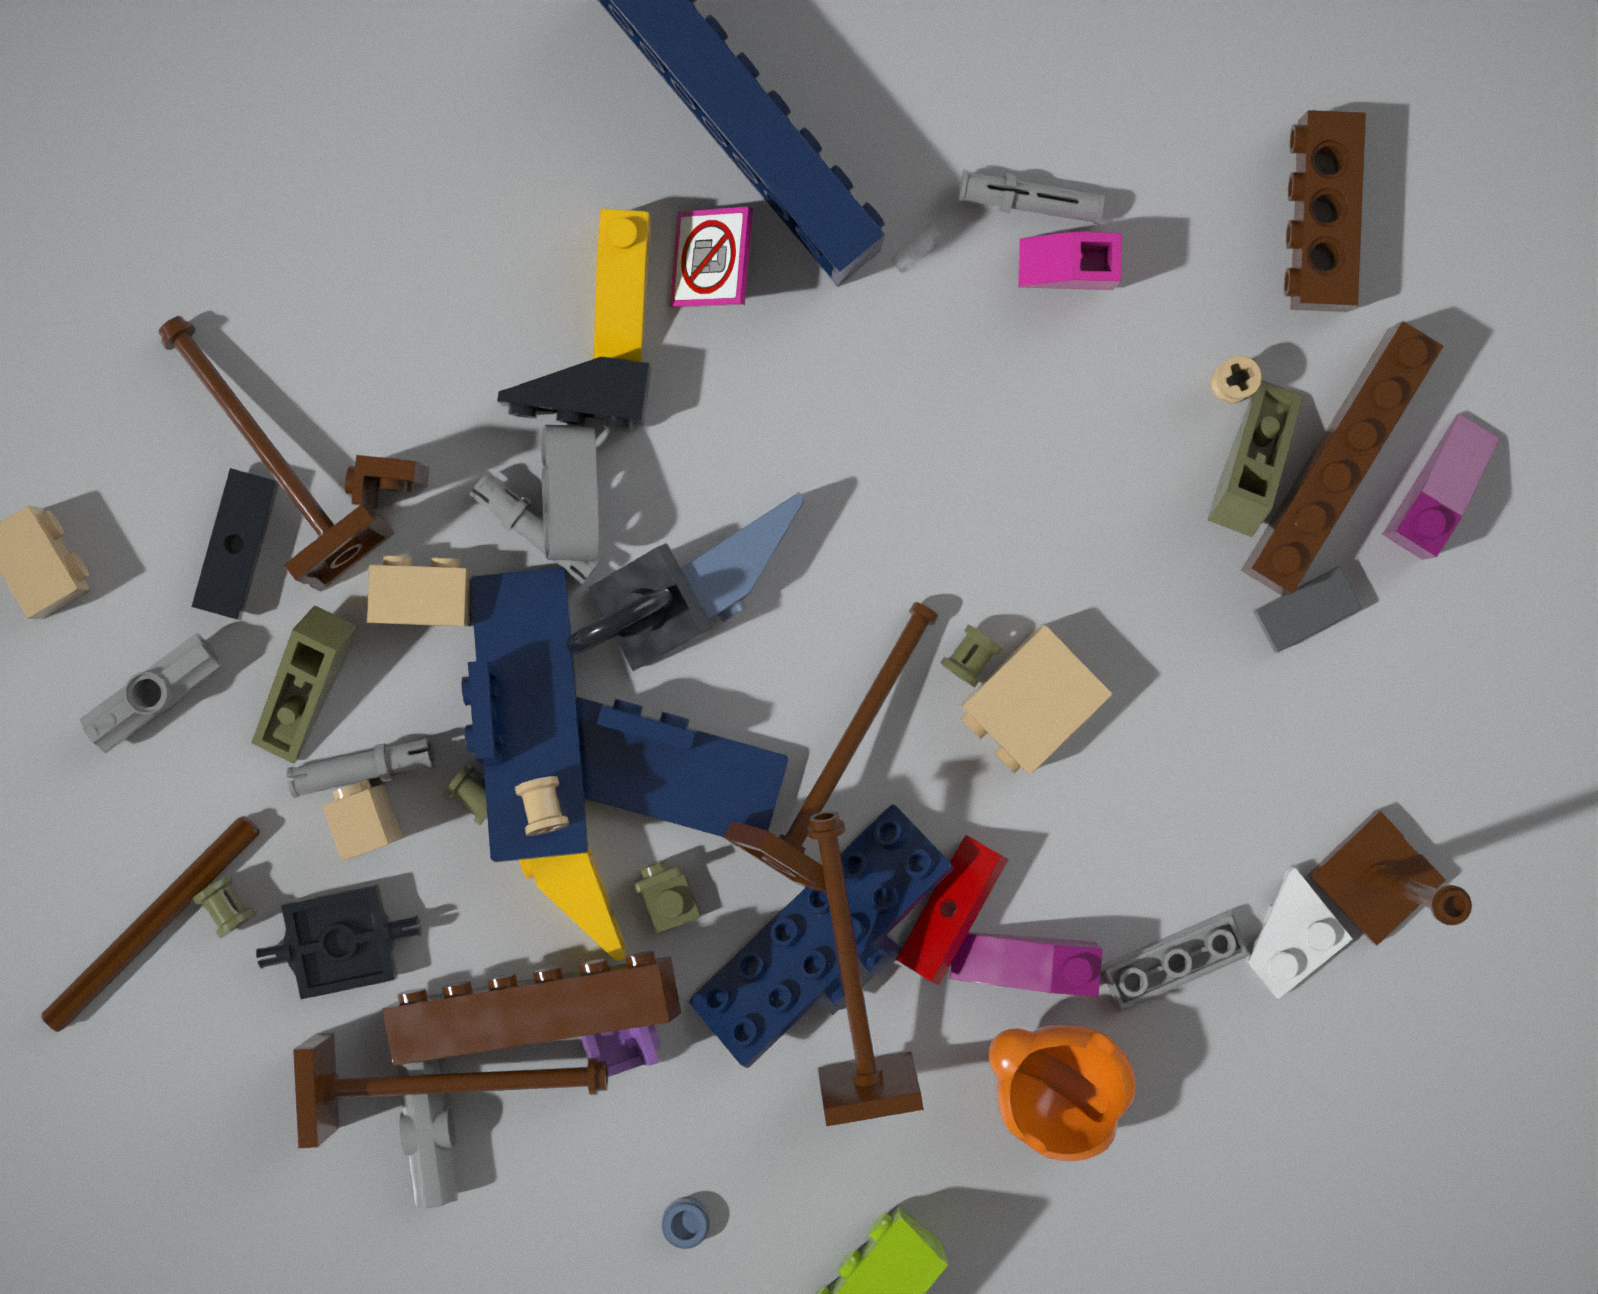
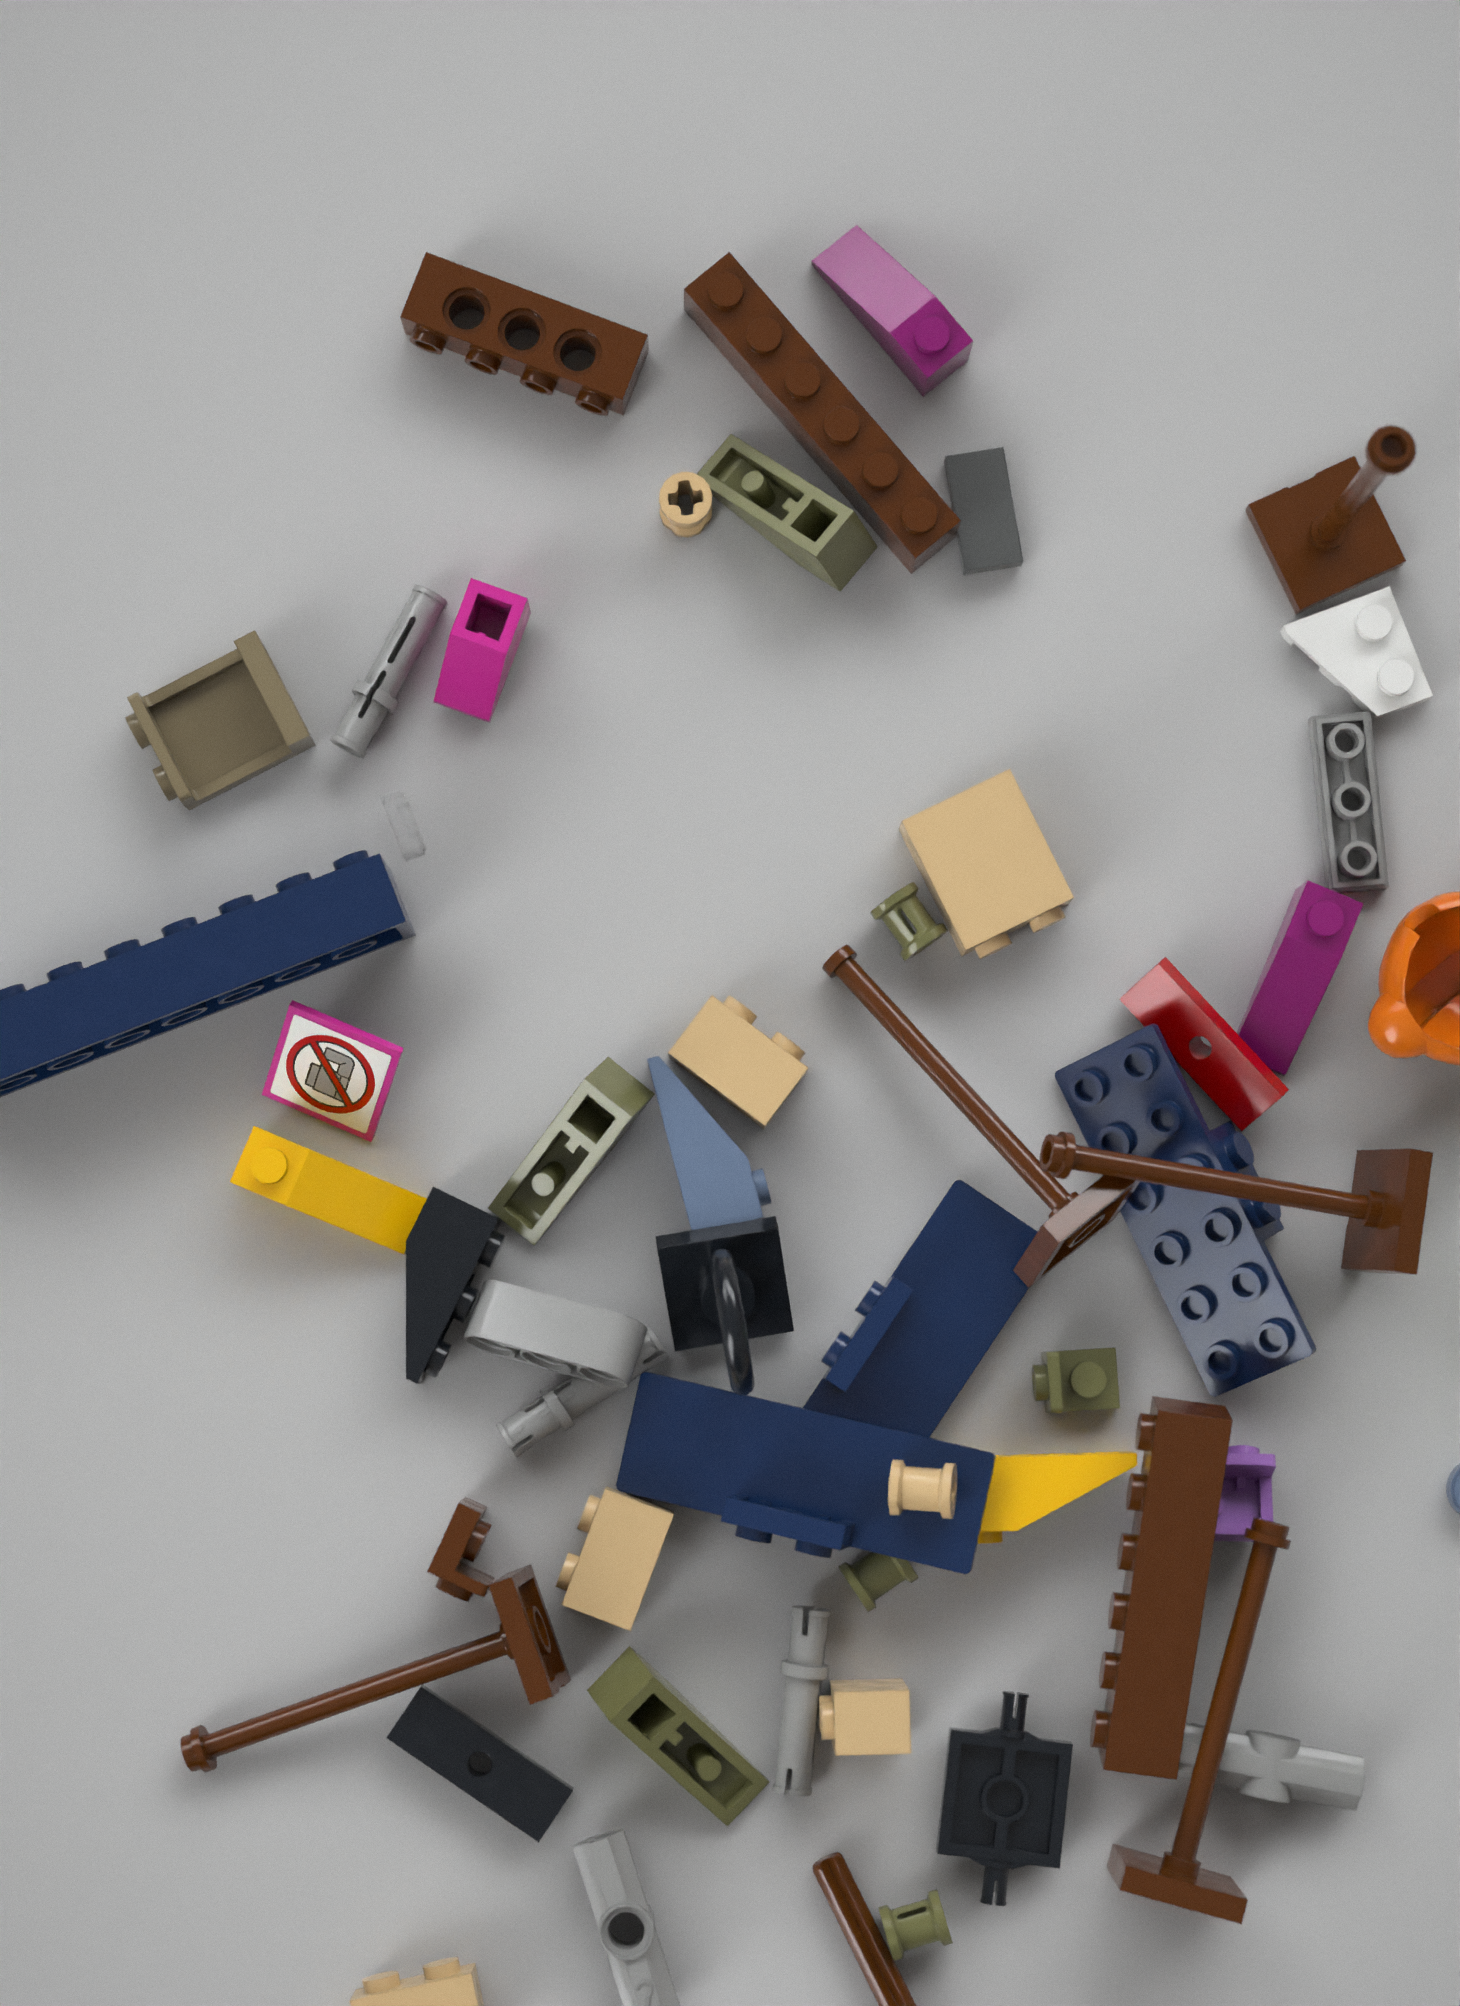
camera: 75 degrees left, 5 degrees down
(713, 458) = (571, 1149): none -> olive slope
(822, 562) = (739, 1060): none -> tan brick
(947, 82) = (219, 724): none -> dark tan panel

